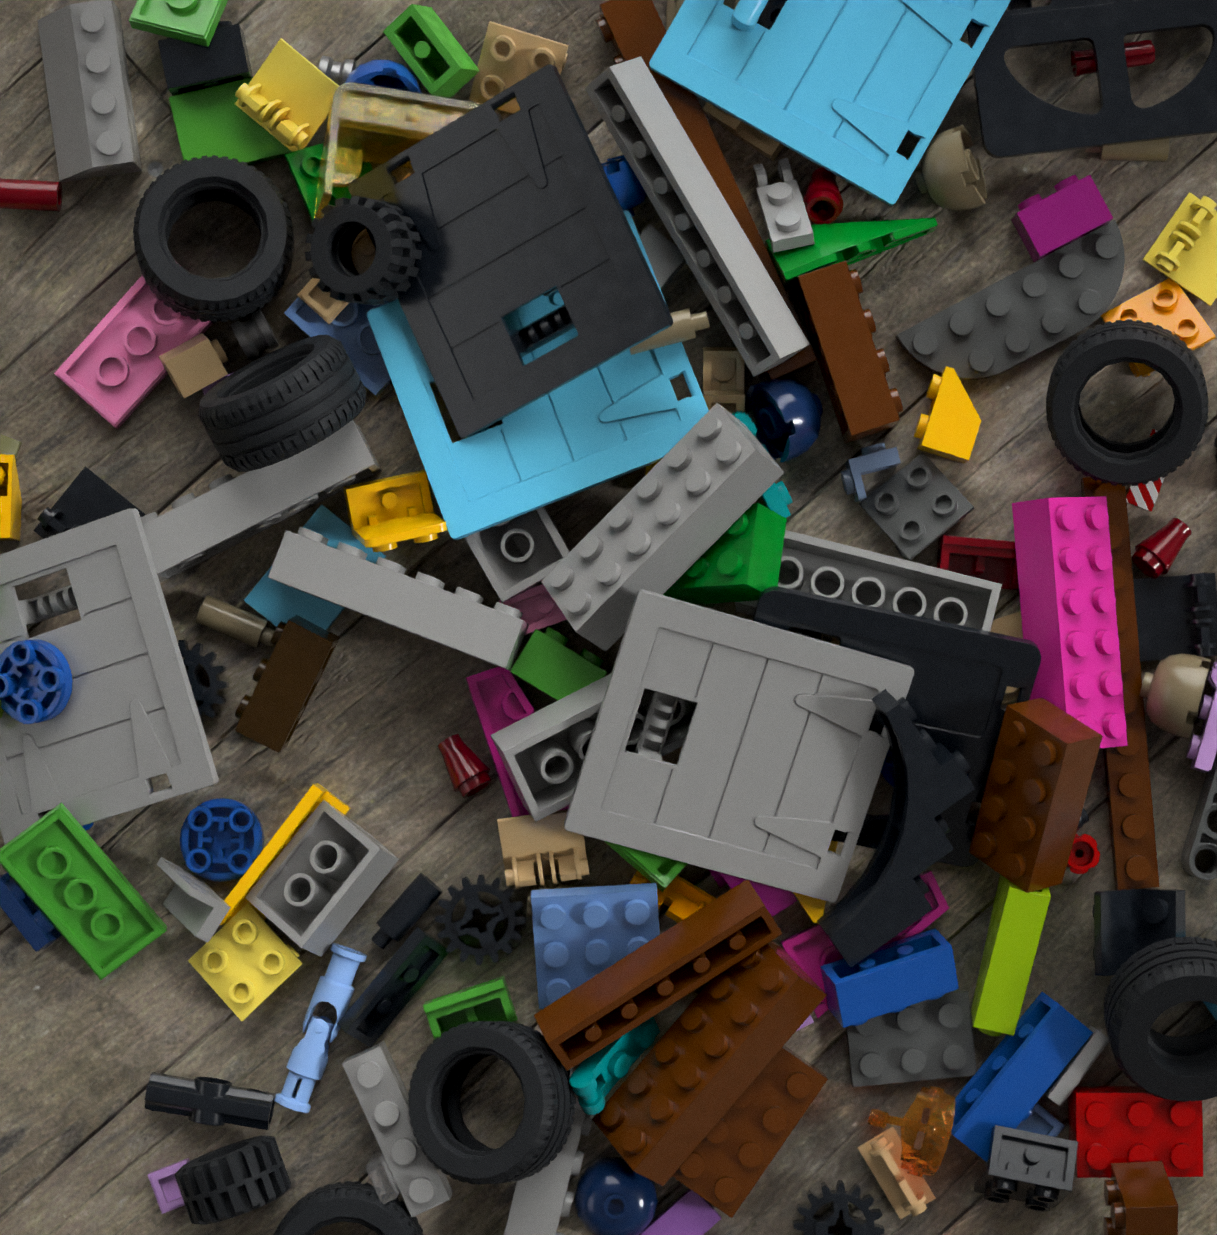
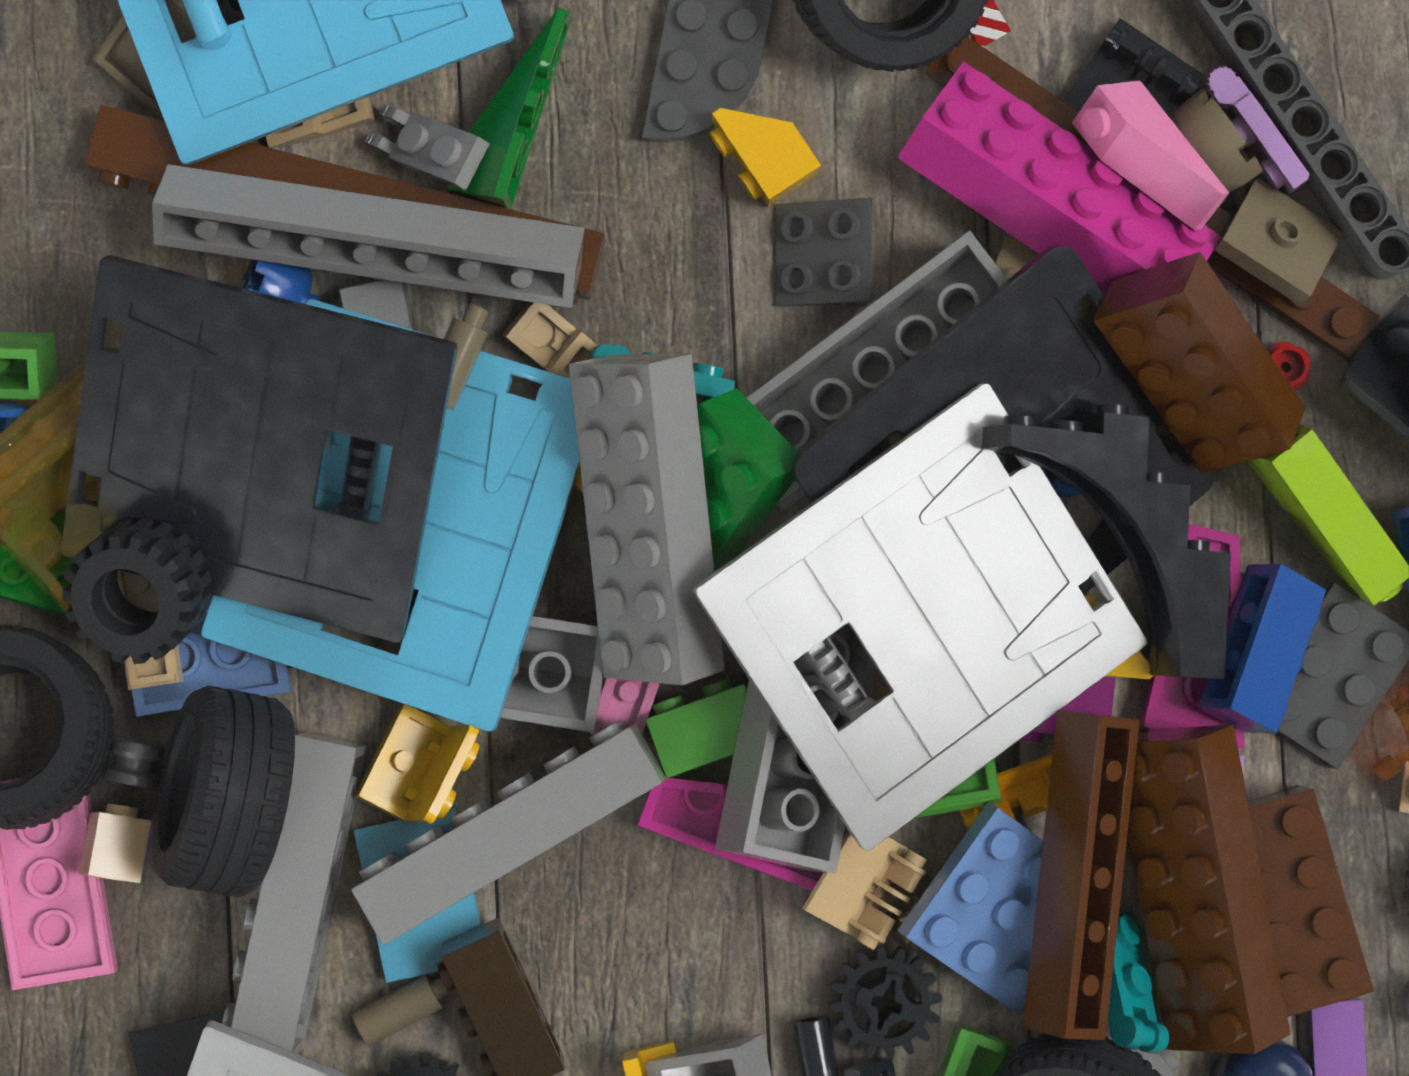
camera: 60 degrees left, 0 degrees up
(464, 767) = (723, 897): dark red cone -> none
(510, 57) = (64, 294): tan hinge -> none
(785, 416) = (634, 308): dark blue cylinder -> none
(823, 197) = (451, 99): dark red cone -> none
(846, 351) = (619, 198): reddish brown brick -> none
(873, 459) = (744, 257): sand blue bracket -> none
(980, 559) = (925, 233): dark red hinge -> none
(1143, 656) = (1149, 151): none -> bright pink slope
(1154, 785) = (1279, 241): none -> dark tan plate
(1160, 549) = (1055, 51): dark red cone -> none

